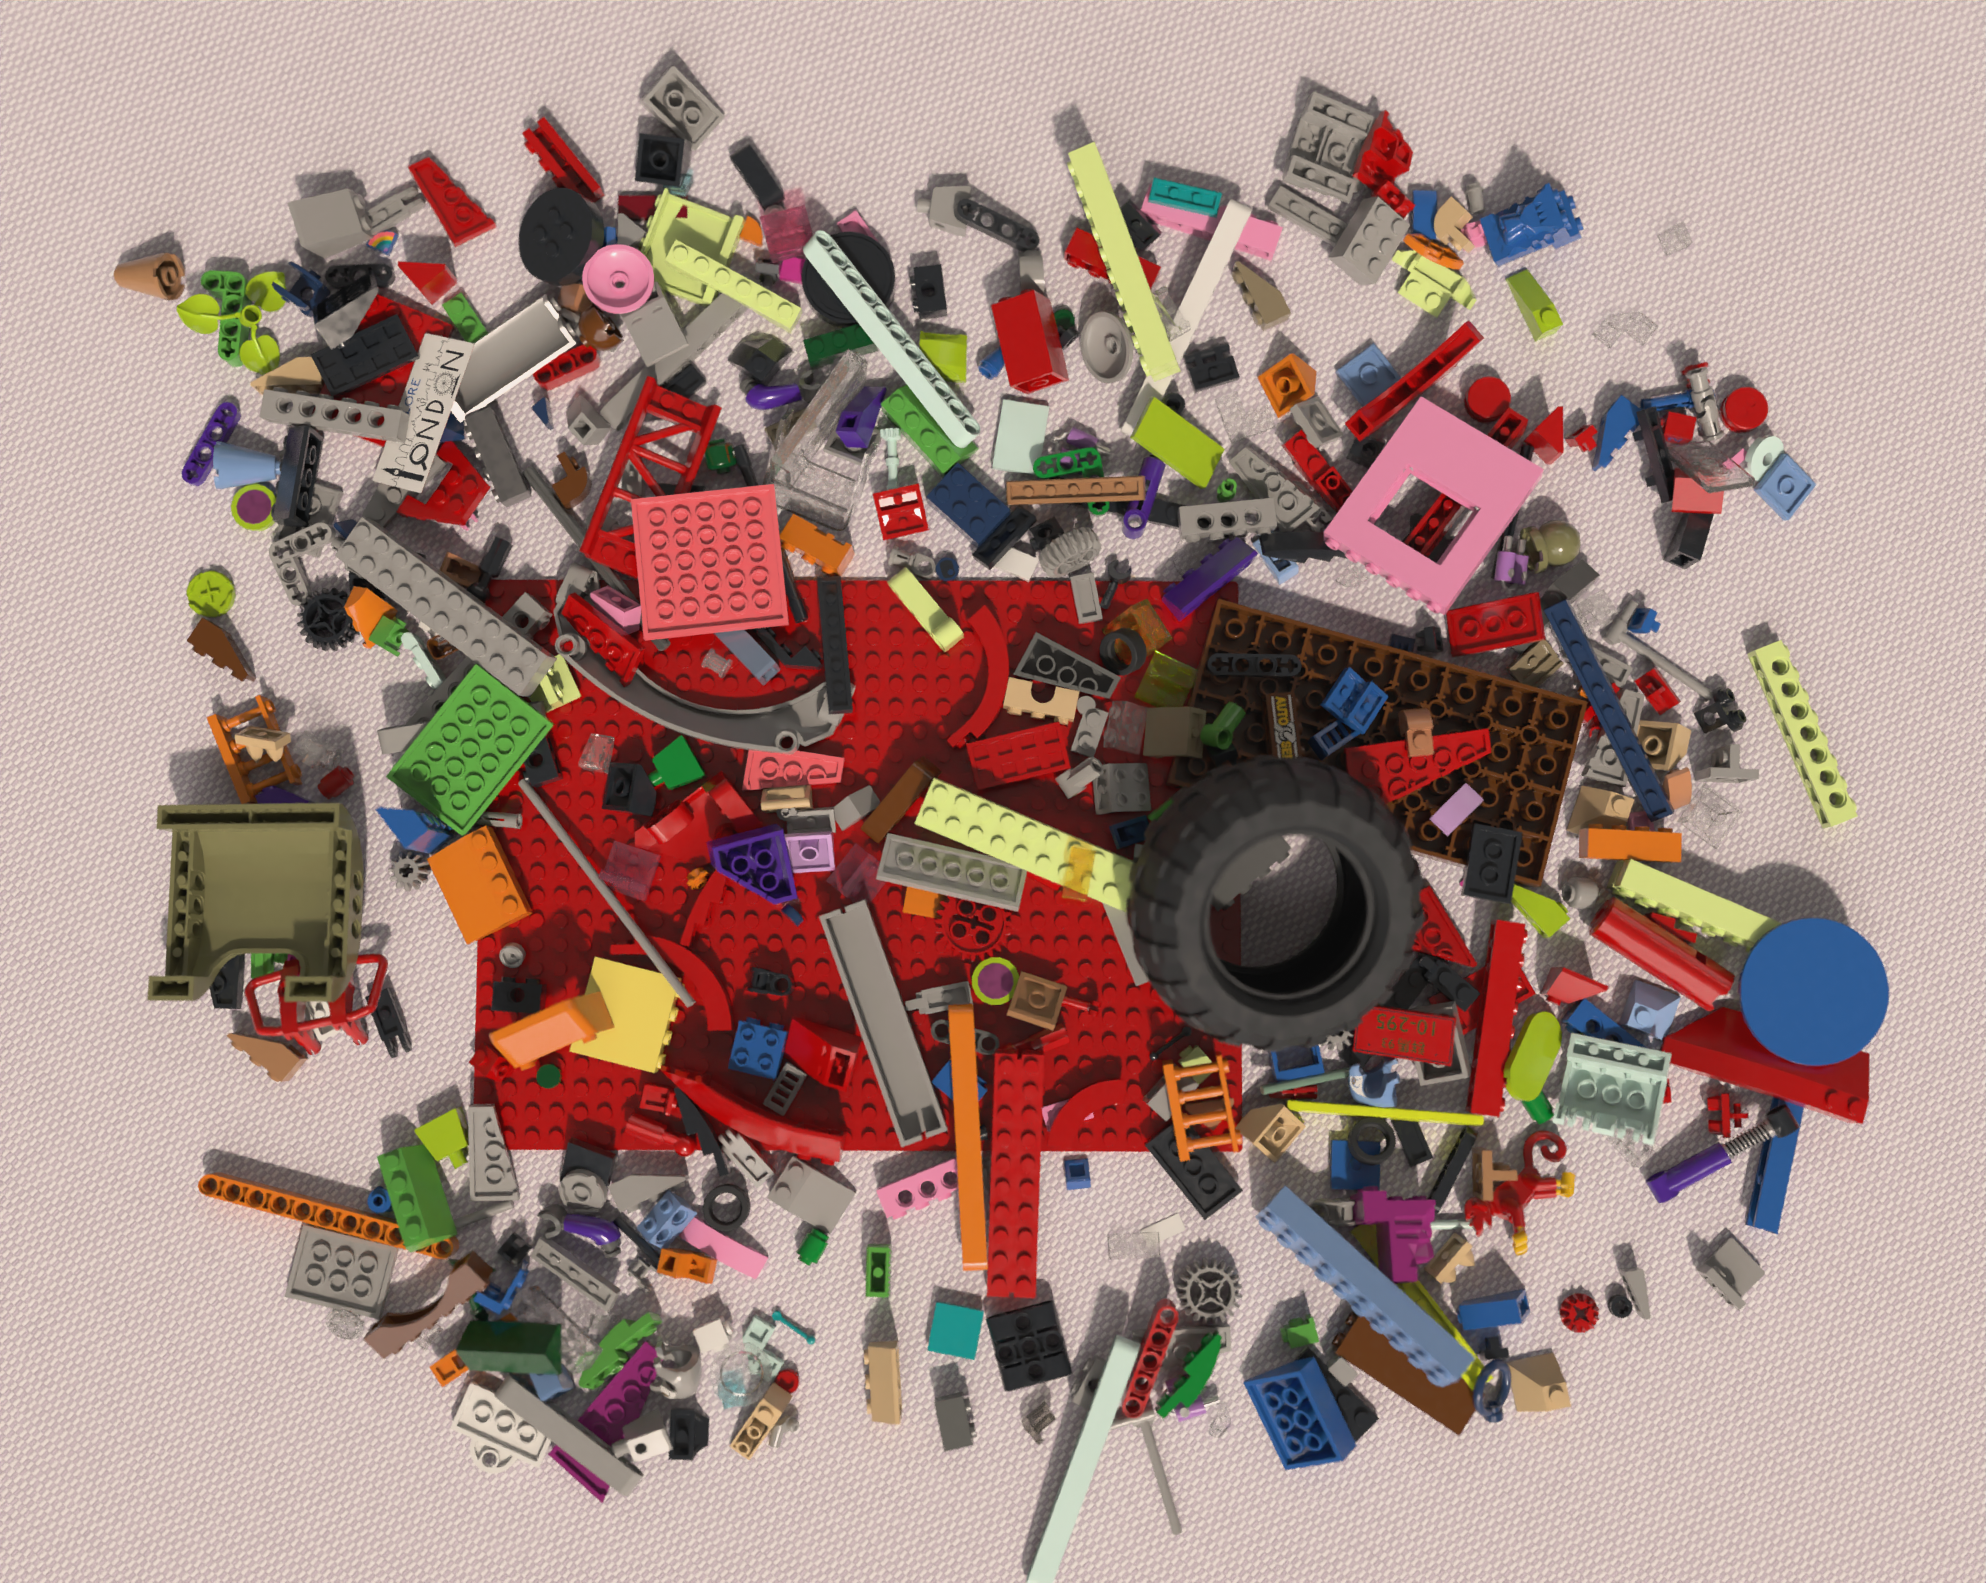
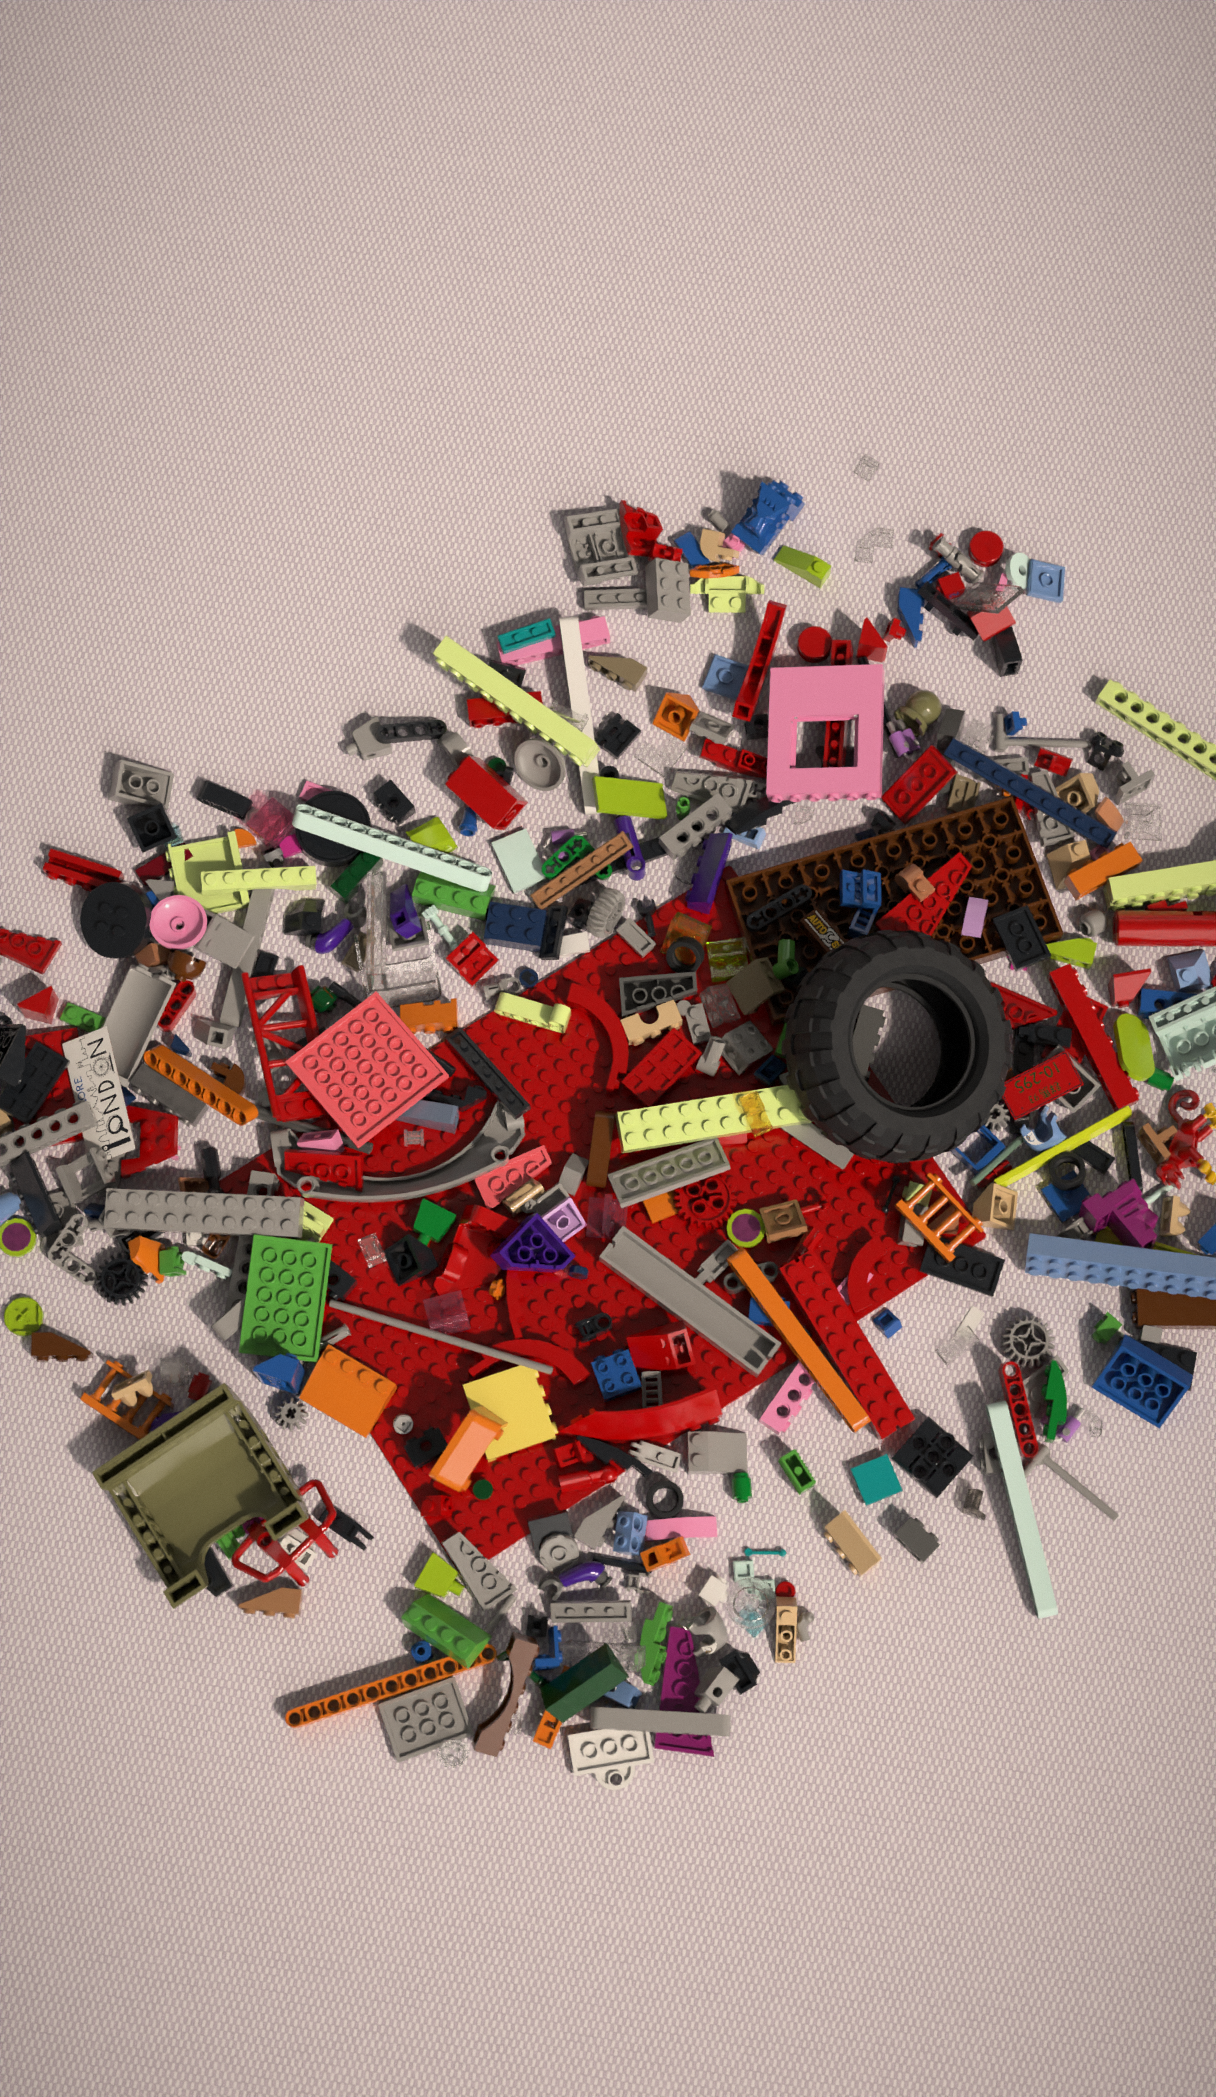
camera: 35 degrees left, 10 degrees down
(343, 482) = (71, 1183): none -> light grey panel
(534, 468) = (201, 1085): none -> orange beam

